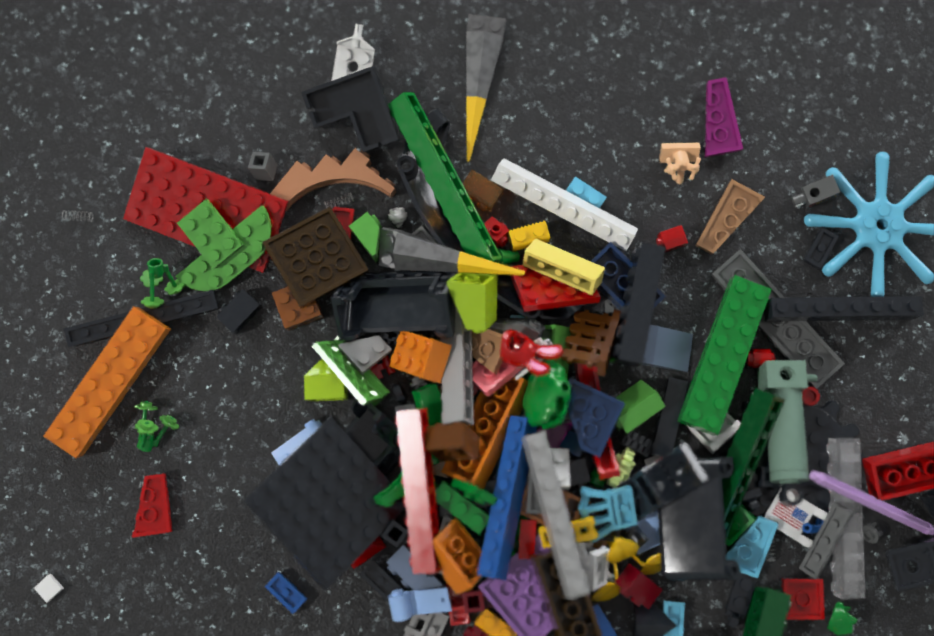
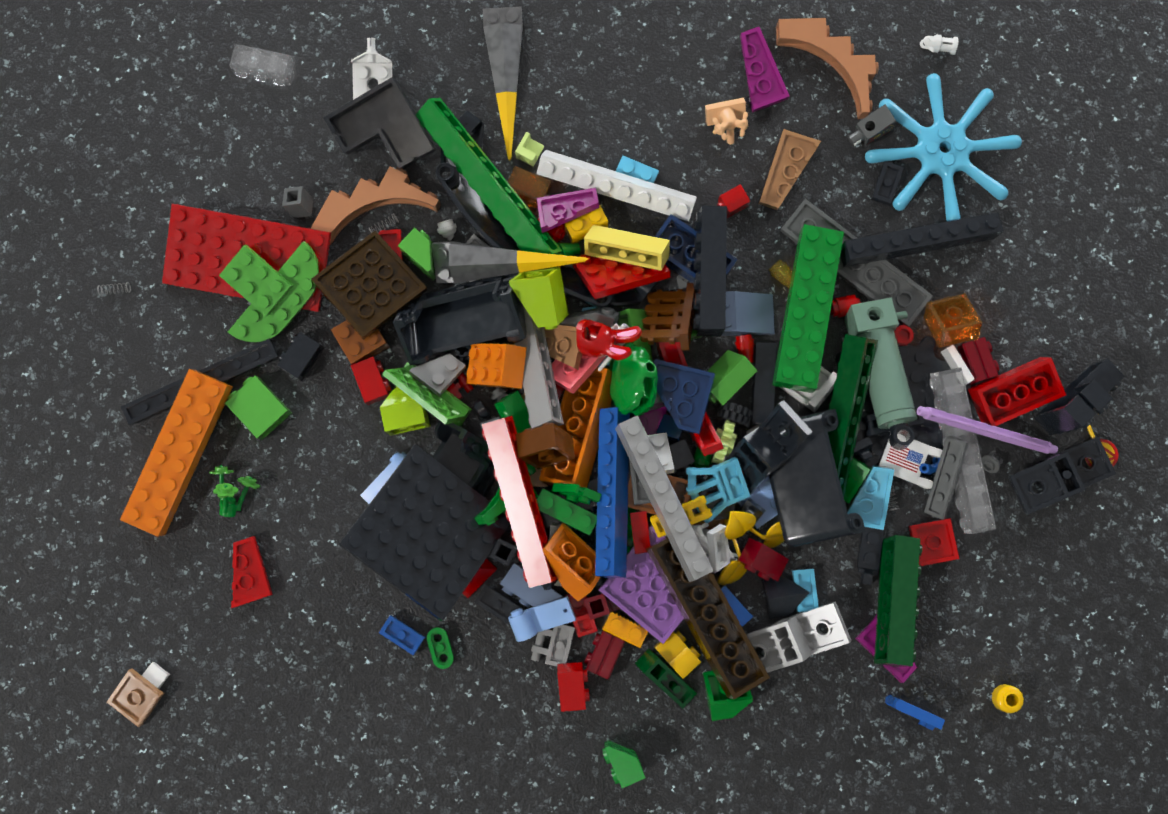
camera: 10 degrees left, 0 degrees up
(27, 604) = (135, 697): none -> medium nougat tile
(152, 278) = (205, 336): plant -> none
(190, 352) = (257, 407): none -> bright green brick
(253, 30) = (263, 65): none -> clear brick
(300, 346) = (371, 381): none -> red brick
(319, 611) = (441, 647): none -> green plate
(488, 155) = (529, 150): none -> yellowish green panel
(512, 217) = (564, 207): none -> magenta wing
(658, 379) = (745, 346): none -> red cone
(705, 315) = (781, 272): none -> clear yellow cone
(810, 135) = (813, 36): none -> nougat arch
(841, 621) = (976, 556): green piece -> none
(855, 431) = (955, 361): none -> white tile
(859, 391) = (952, 320): none -> clear orange brick
(877, 433) = (979, 359): none -> dark red brick
(892, 123) = (939, 43): none -> white piece

